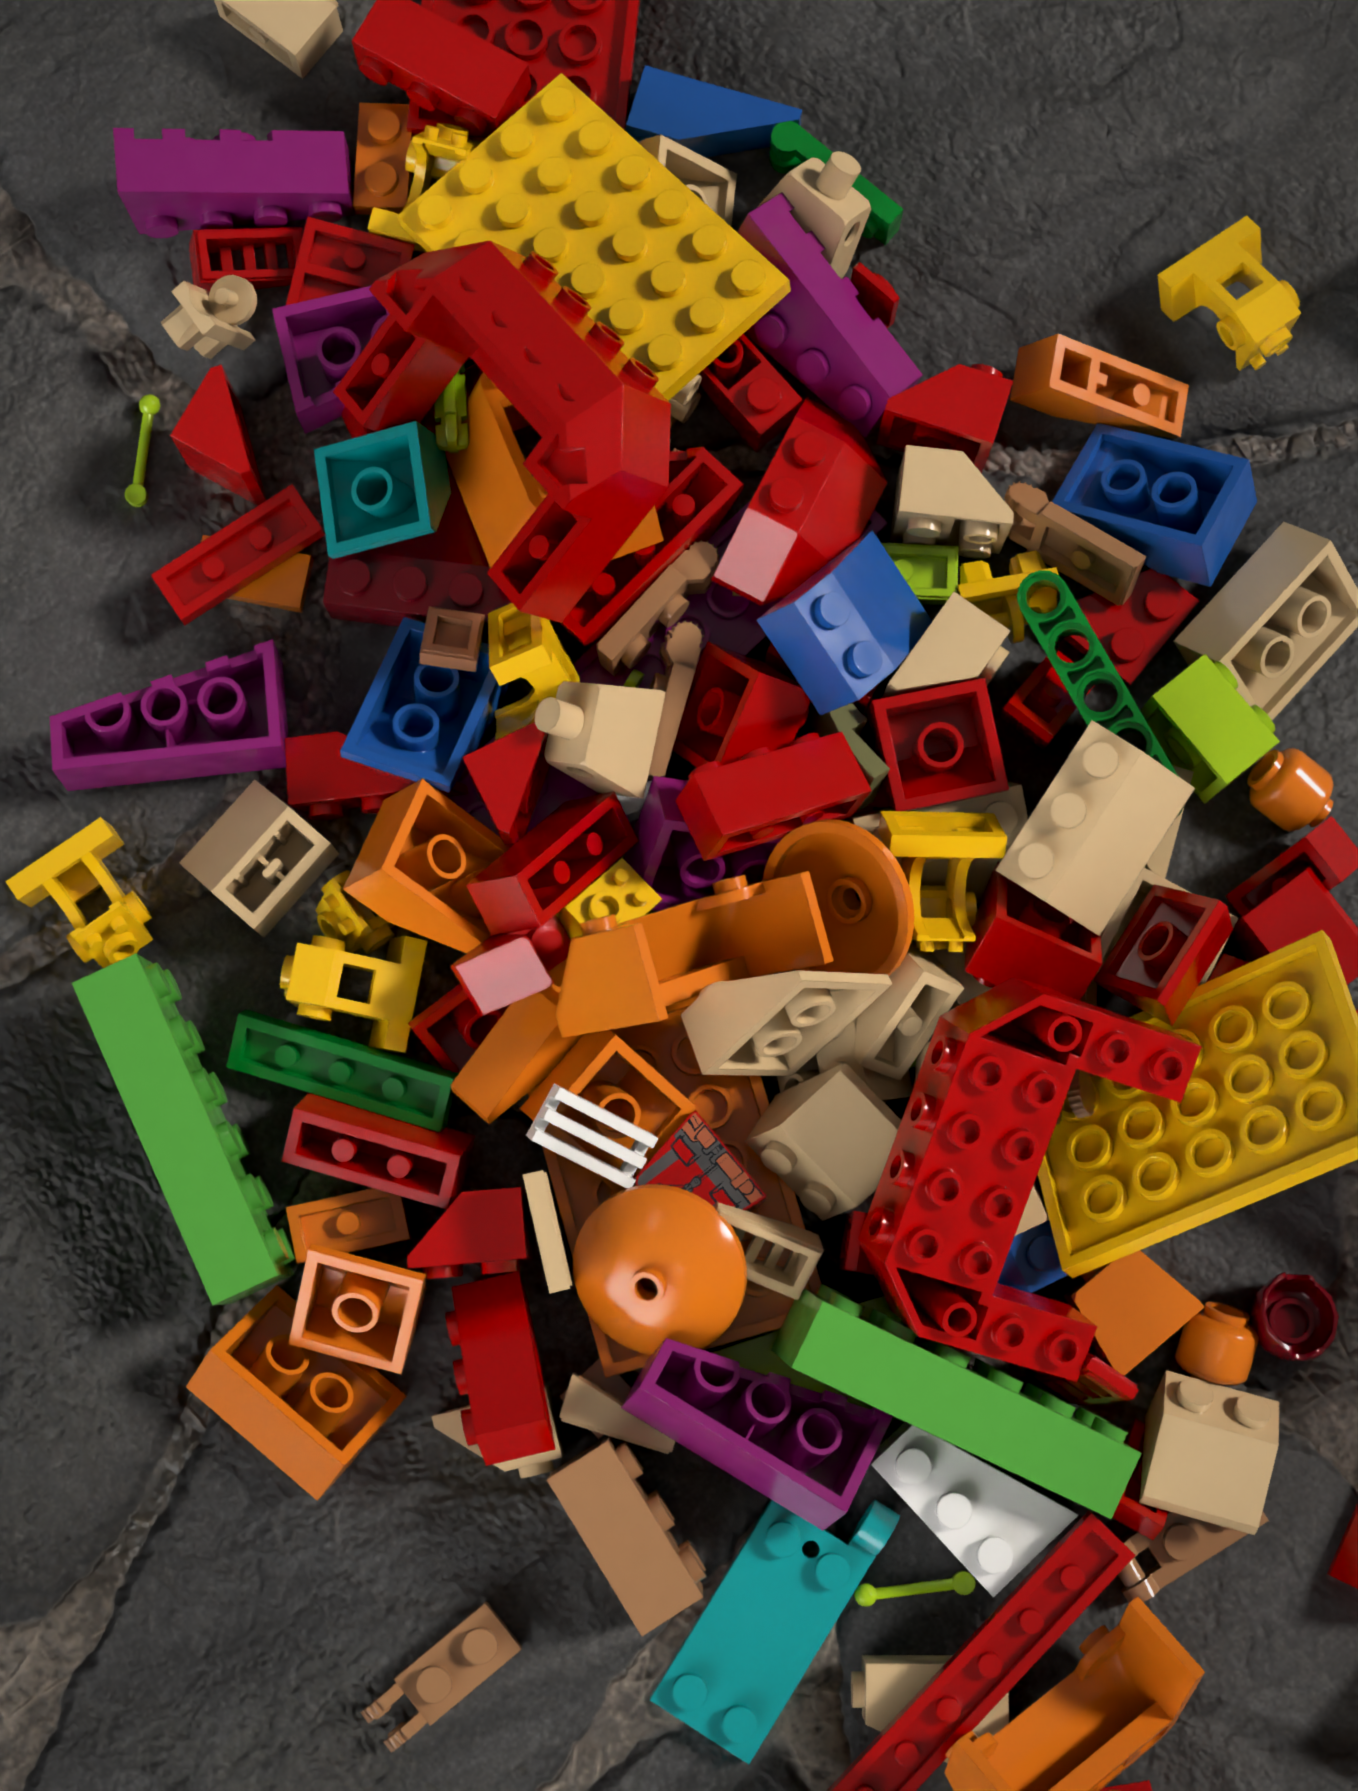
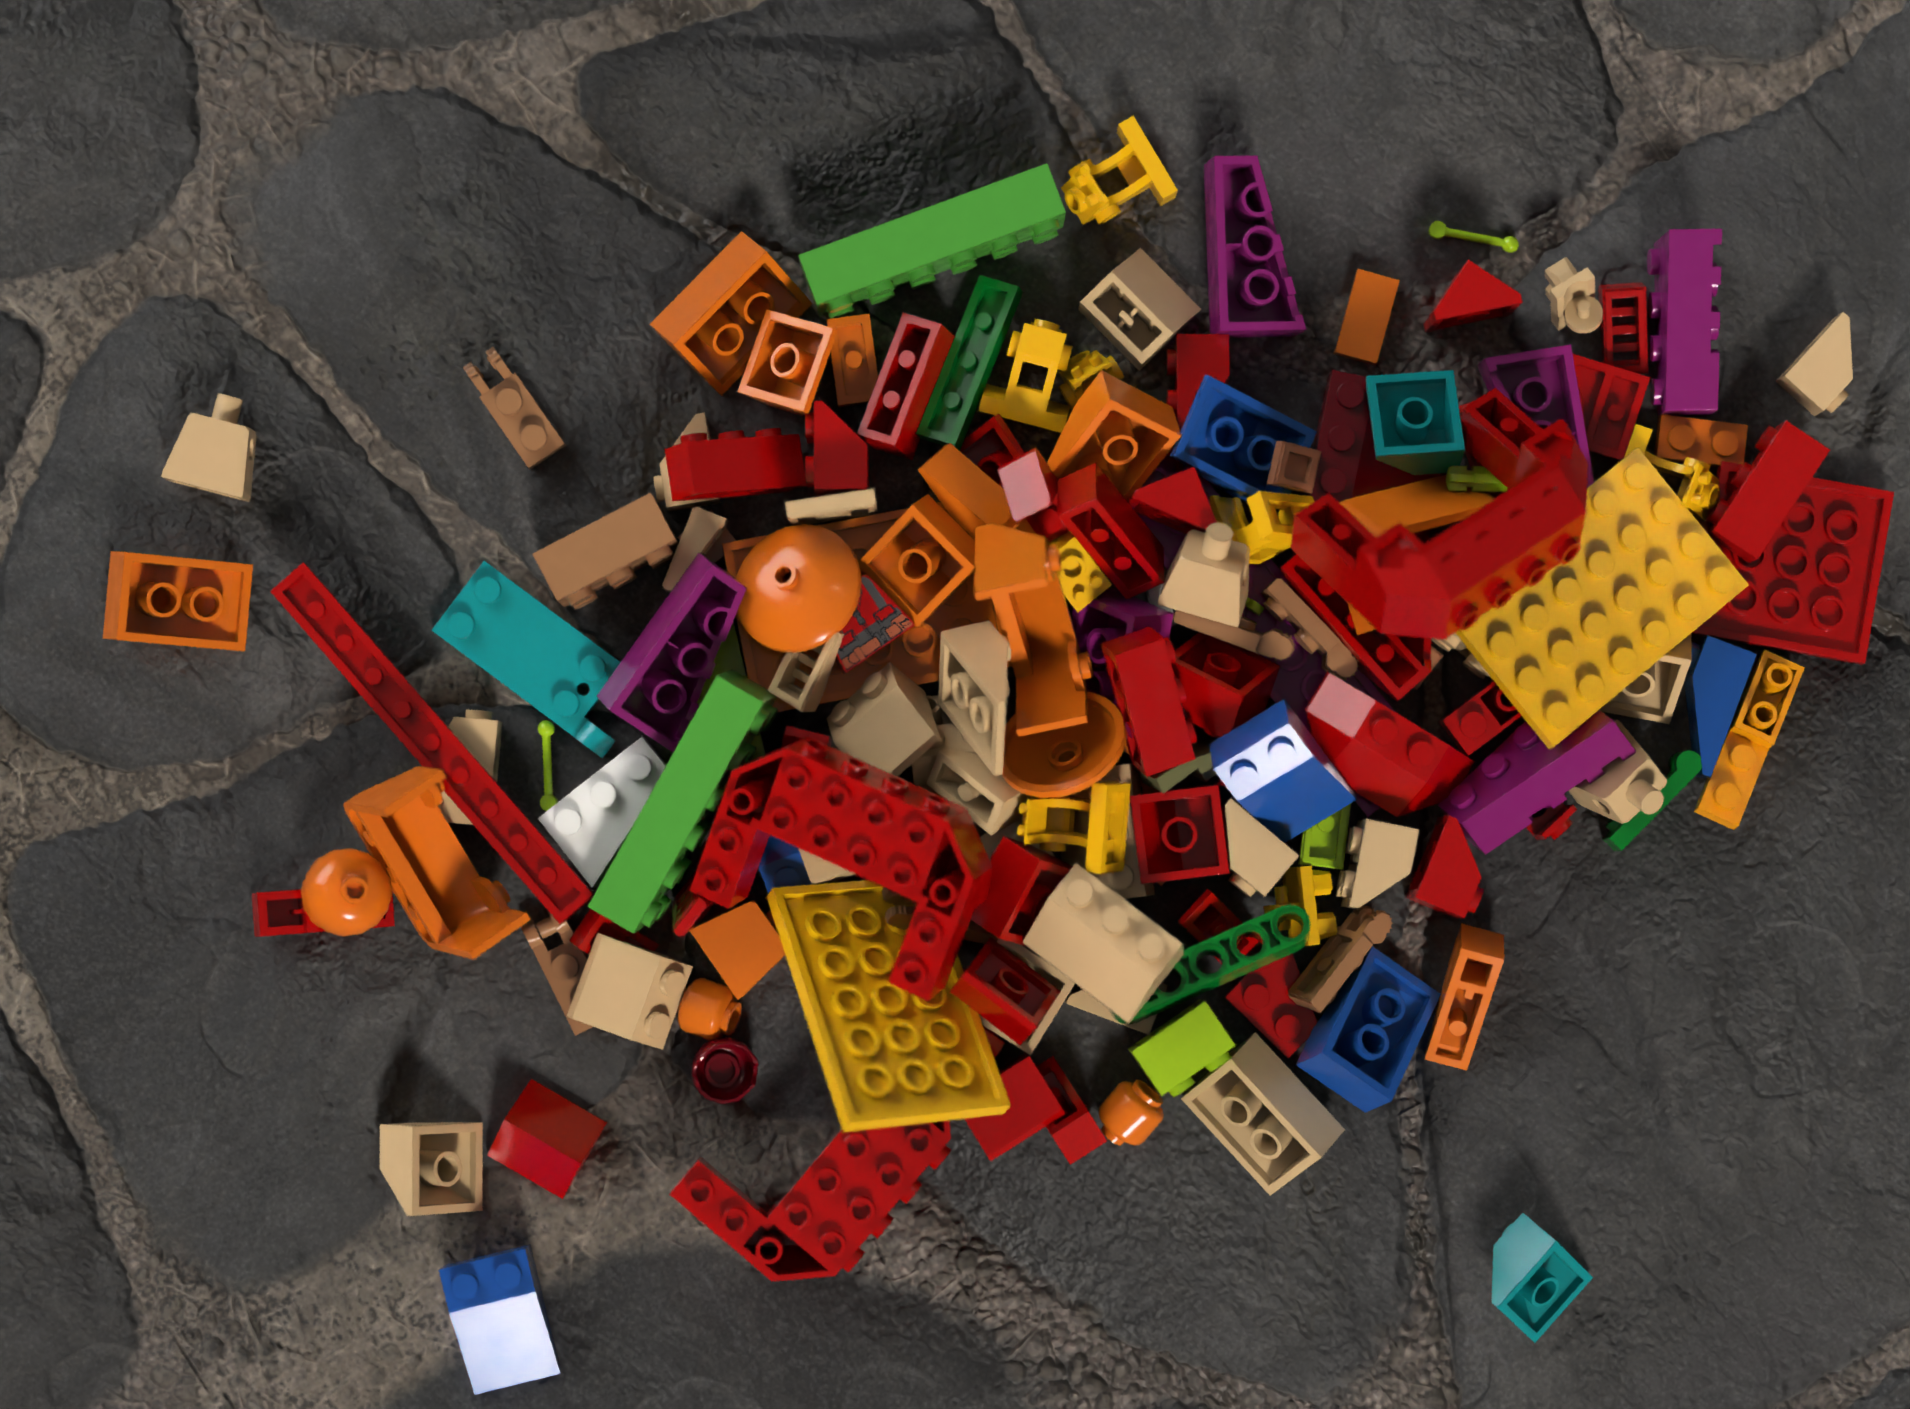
camera: 90 degrees right, 5 degrees up
(238, 554) = (1378, 306): red plate -> none
(632, 1157) = (882, 573): white tile -> none
(737, 63) = (1749, 739): none -> light orange slope
(1253, 323) = (1507, 1123): yellow tile -> none

